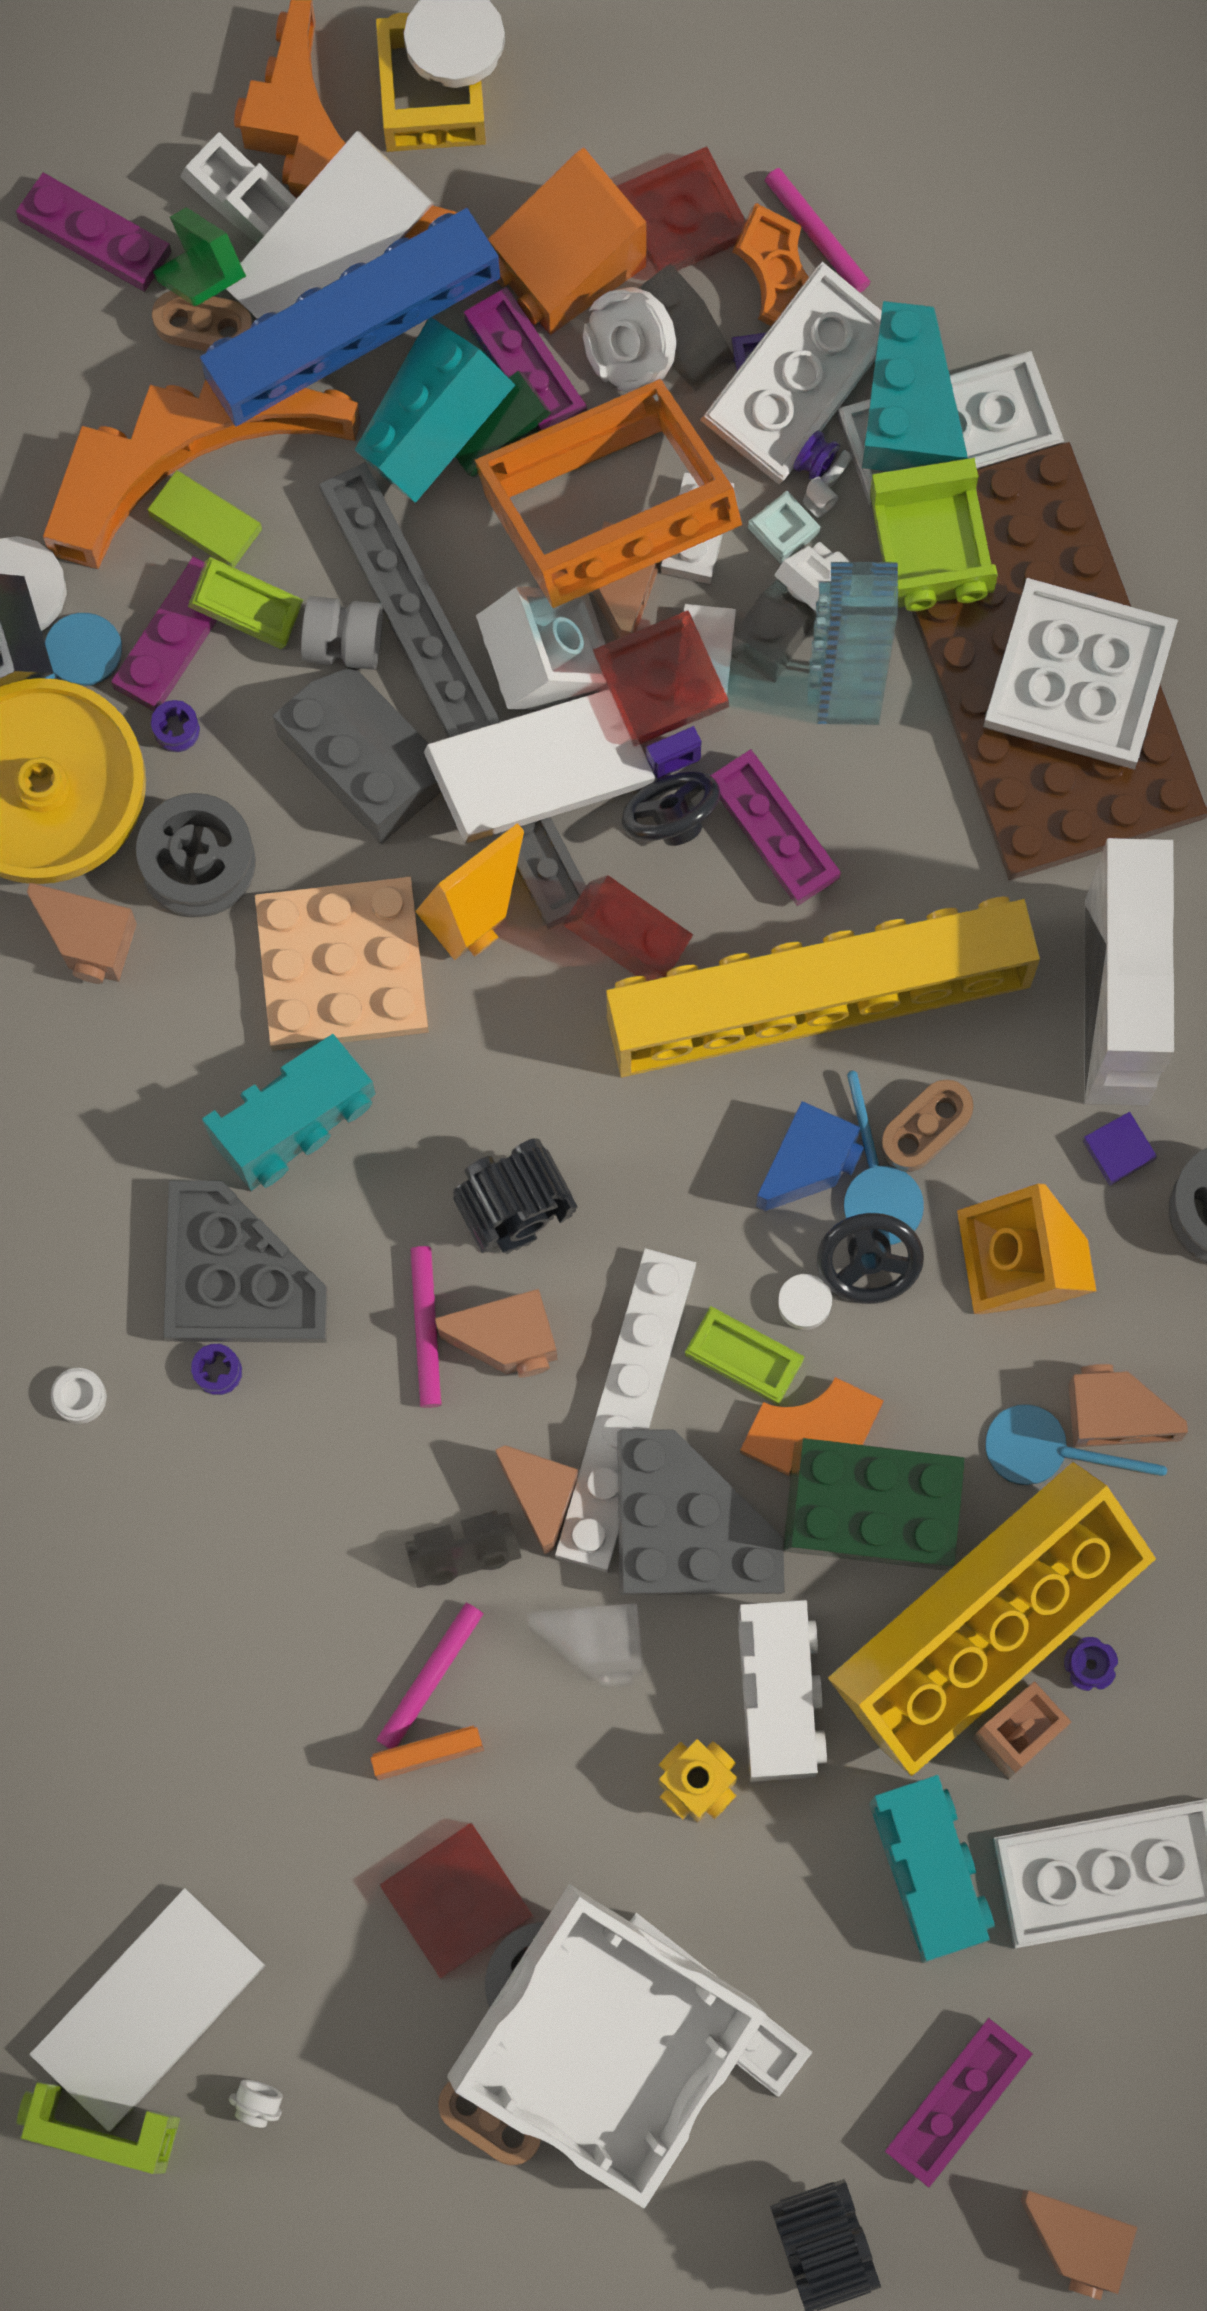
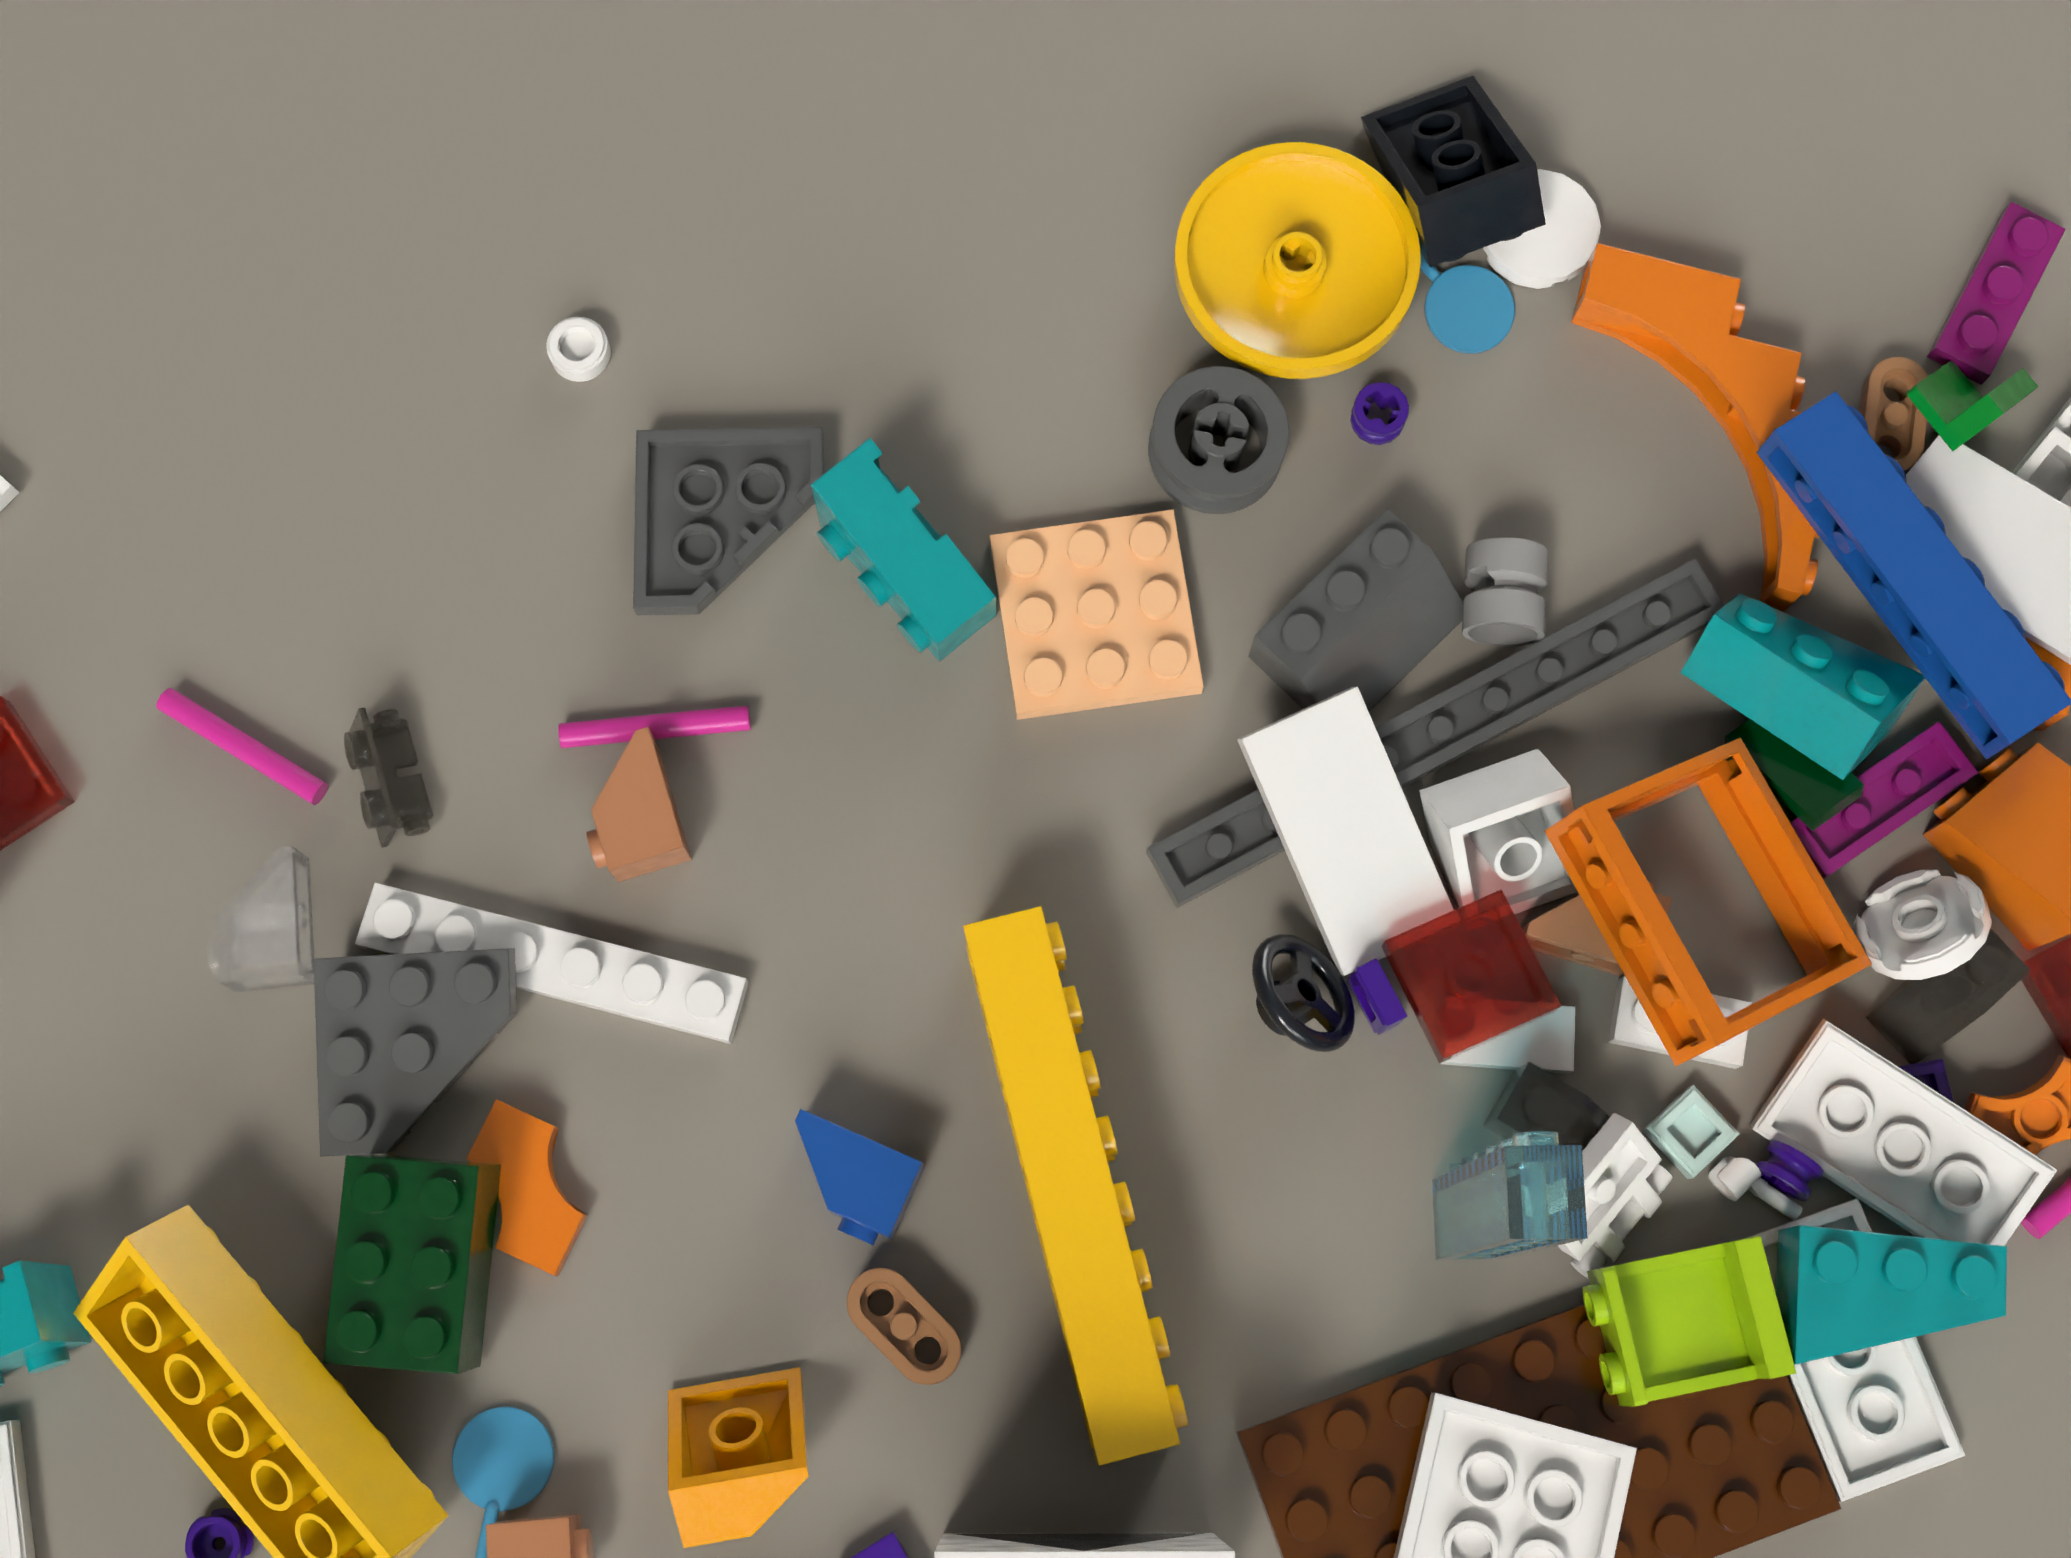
camera: 85 degrees right, 0 degrees up
(86, 931) = (1117, 321): nougat slope -> none
(165, 644) = (1494, 408): magenta plate -> none
(204, 519) = (1641, 435): lime tile -> none
(224, 1383) = (618, 511): dark purple bush -> none
(245, 603) = (1536, 479): lime tile -> none
(426, 1752) = (145, 743): orange tile -> none
(474, 897) = (1171, 756): light orange slope -> none
(513, 1197) = (795, 814): black brick -> none
(541, 1489) = (448, 860): nougat slope -> none
(627, 929) = (1137, 942): clear red brick -> none
(697, 1802) = (91, 1054): yellow brick -> none
(744, 1355) = (616, 1103): lime tile -> none
(775, 828) = (1286, 1125): magenta plate -> none
(780, 1691) = (193, 1150): white wedge -> none
(804, 1301) = (682, 1176): white tile -> none
(870, 1253) = (734, 1255): black piece -> none
(880, 1187) = (810, 1268): dark azure piece -> none
(1021, 1730) = (131, 1452): nougat slope -> none

